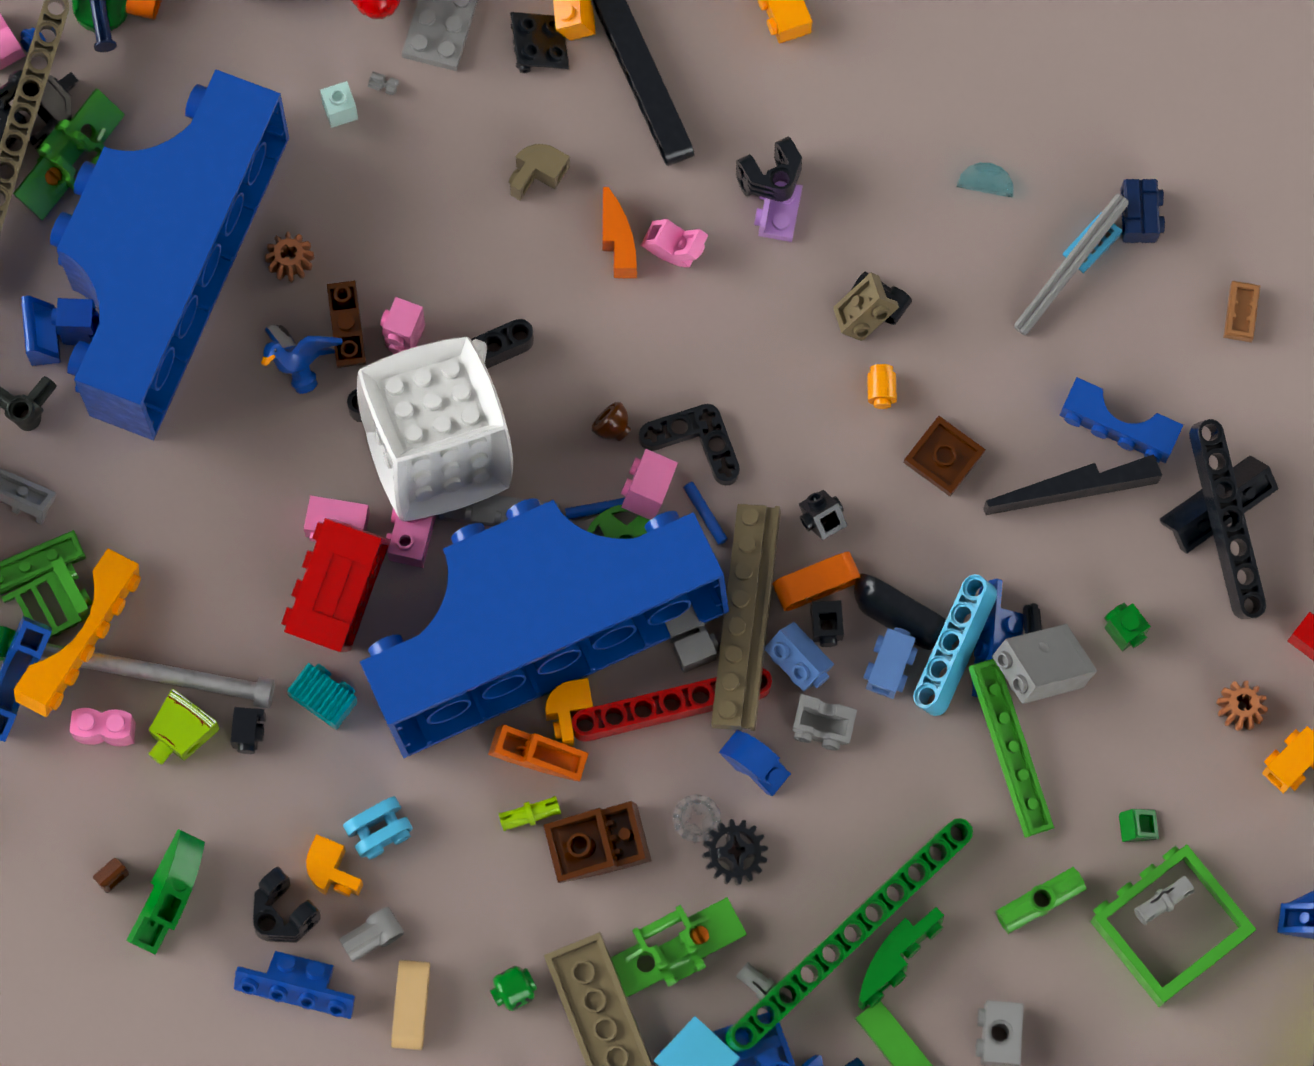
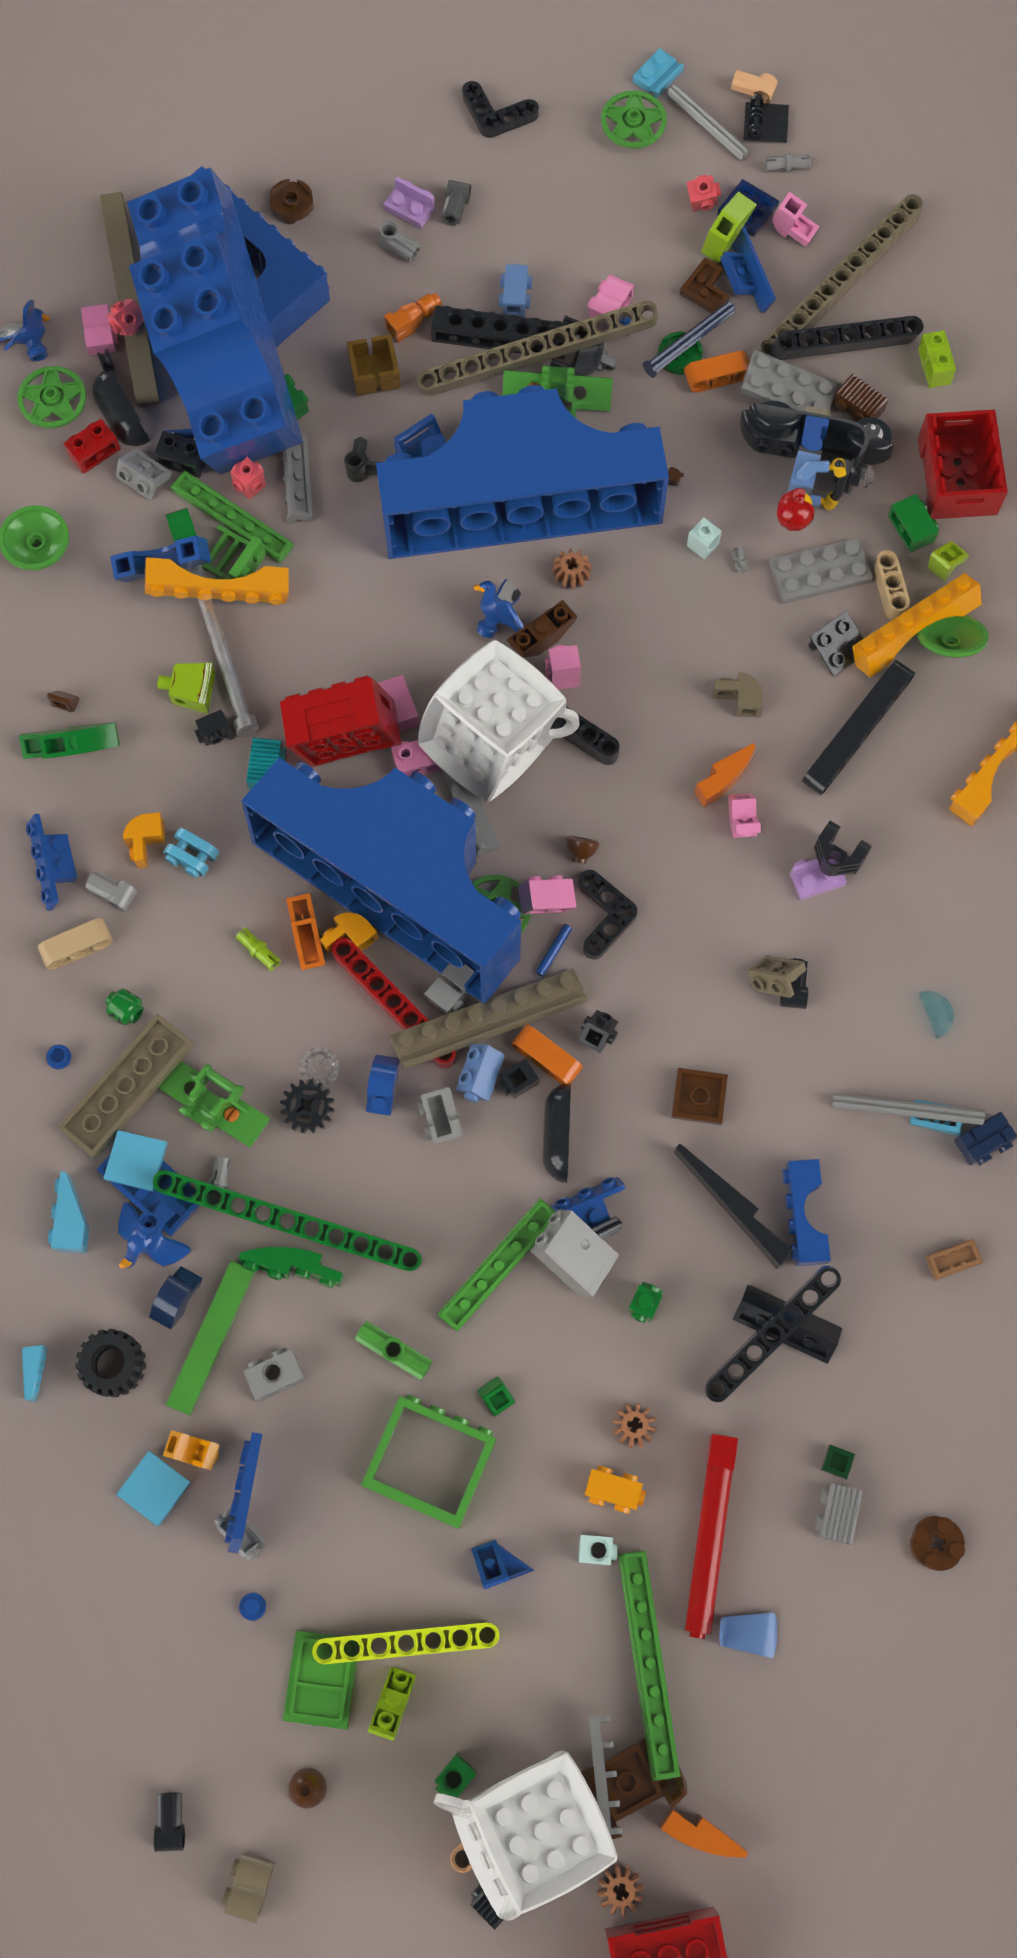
camera: 65 degrees right, 0 degrees up
(93, 727) = (162, 636): bright pink brick -> none
(300, 921) = (92, 835): black piece -> none
(591, 509) = (507, 867): blue piece -> none
(597, 842) = (263, 1007): reddish brown slope -> none
(881, 386) = (725, 1021): light orange brick -> none
(894, 653) = (514, 1141): medium blue brick -> none
(952, 631) = (553, 1180): medium azure beam -> none
(1164, 900) = (439, 1443): light grey pin -> none

